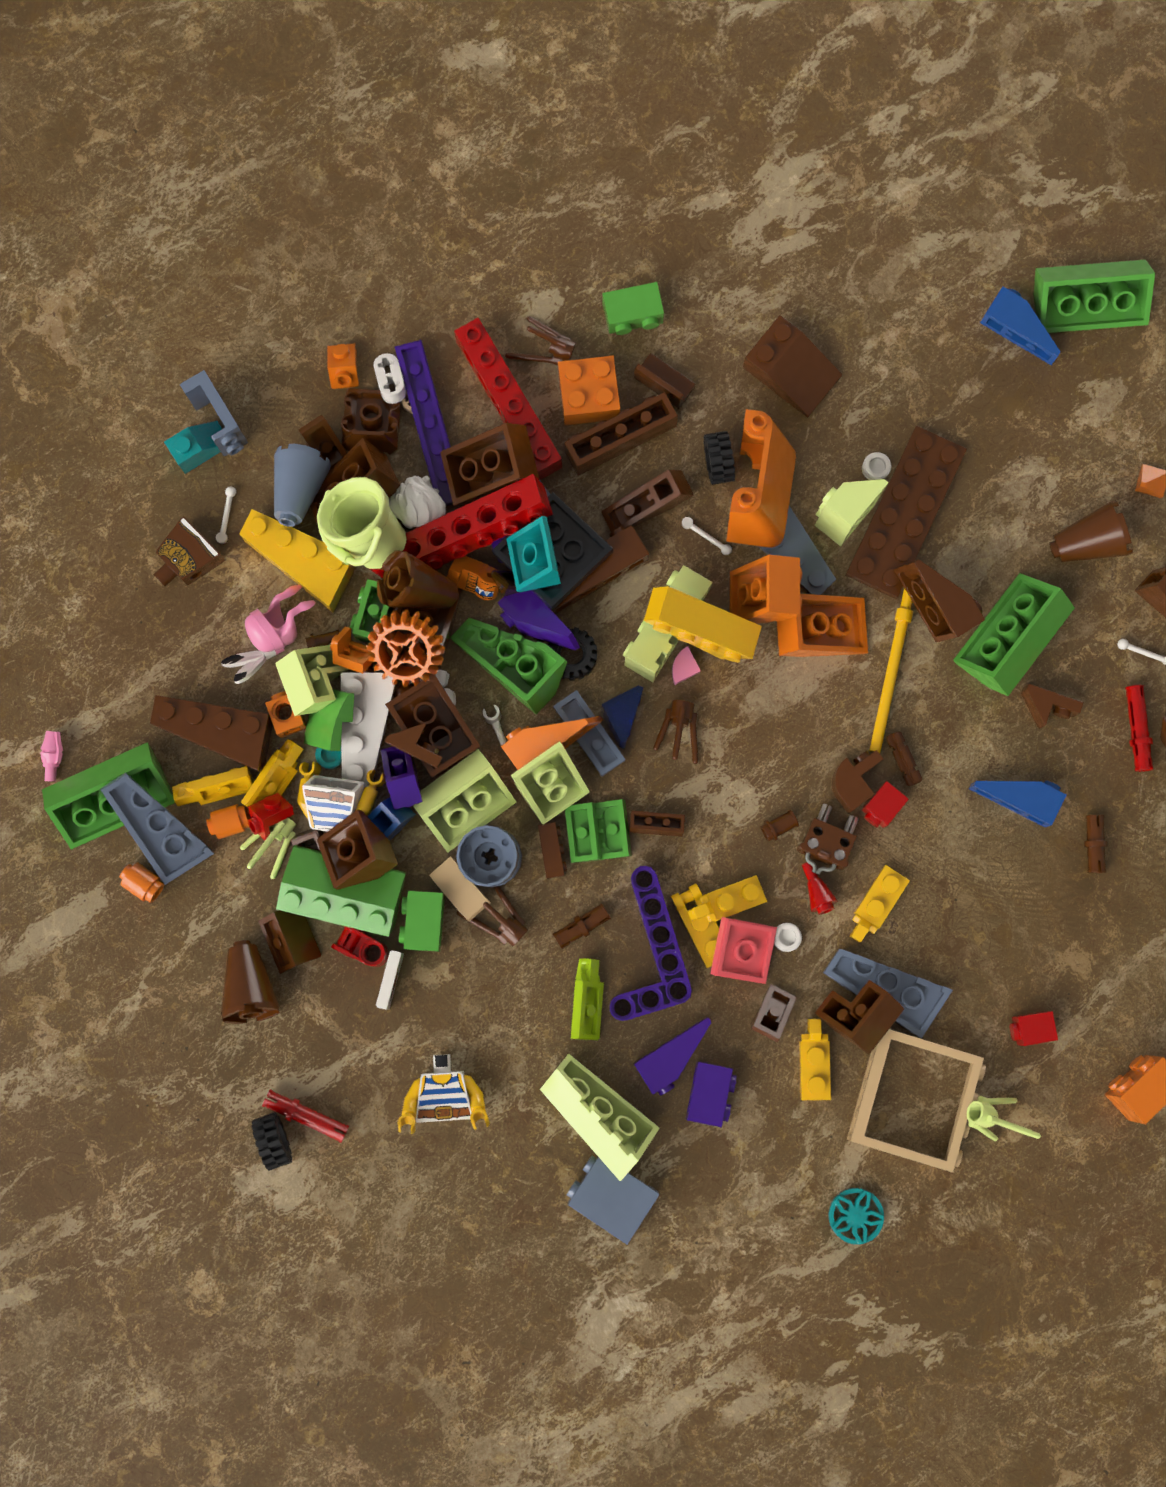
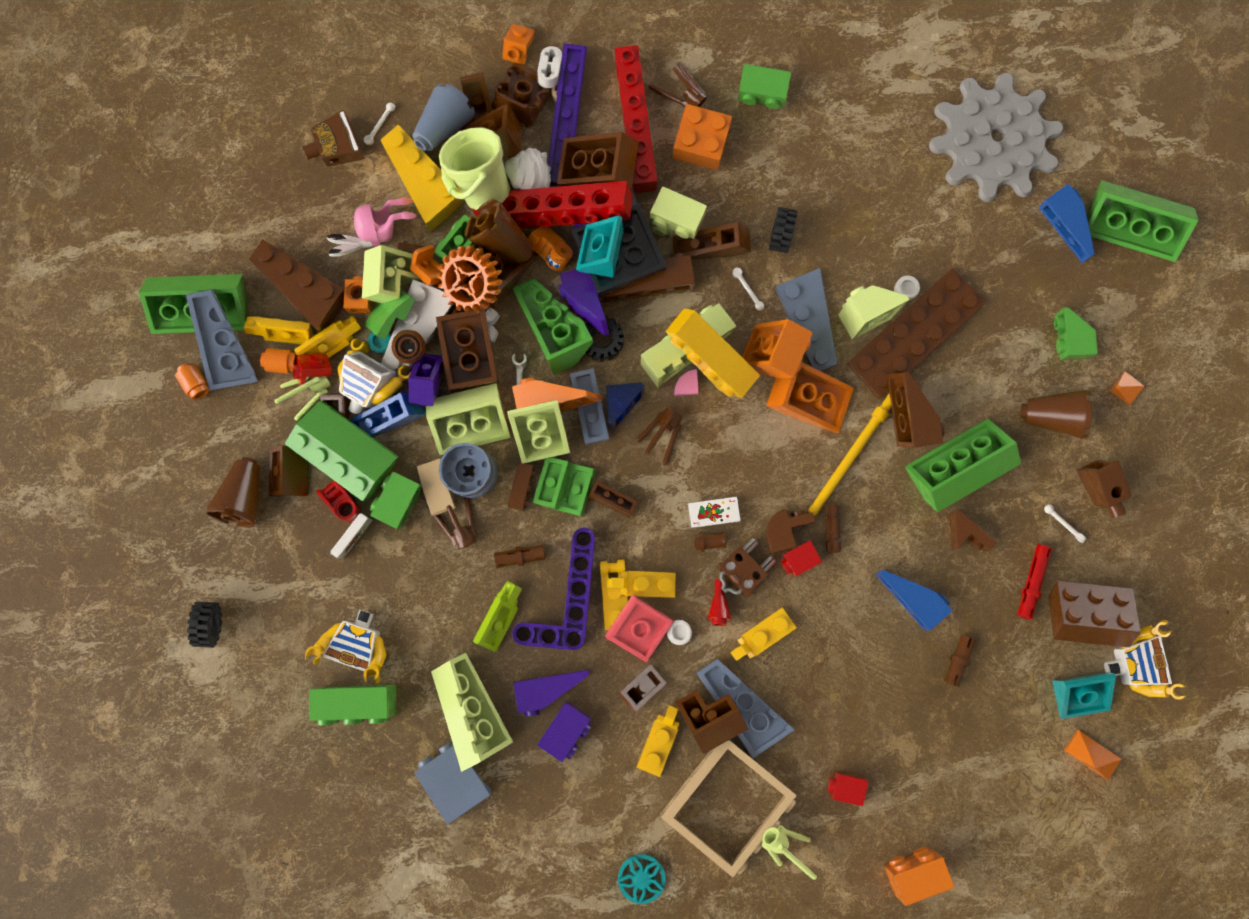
camera: 25 degrees right, 0 degrees up
(51, 754) = (166, 254): bright pink piece -> none
(194, 445) = (379, 60): teal slope -> none
(202, 392) = (400, 22): sand blue panel -> none
(304, 1115) = (241, 615): red pin -> none
(356, 851) = (365, 424): reddish brown slope -> none
(359, 751) = (400, 346): none -> reddish brown cone
(407, 742) = (440, 353): reddish brown slope -> none
(471, 1159) = (352, 704): none -> bright green brick
(505, 582) = (571, 259): dark brown slope -> none
(597, 486) = (676, 213): none -> yellowish green brick
(621, 433) = (715, 179): reddish brown brick -> none
(663, 378) = (765, 153): reddish brown panel -> none
(761, 513) = (798, 285): orange windscreen -> none
(770, 793) = (714, 512): none -> white tile
(792, 366) = (871, 181): reddish brown slope -> none
(899, 292) = (992, 161): none -> light grey plate
(1076, 448) = (1075, 336): none -> bright green slope

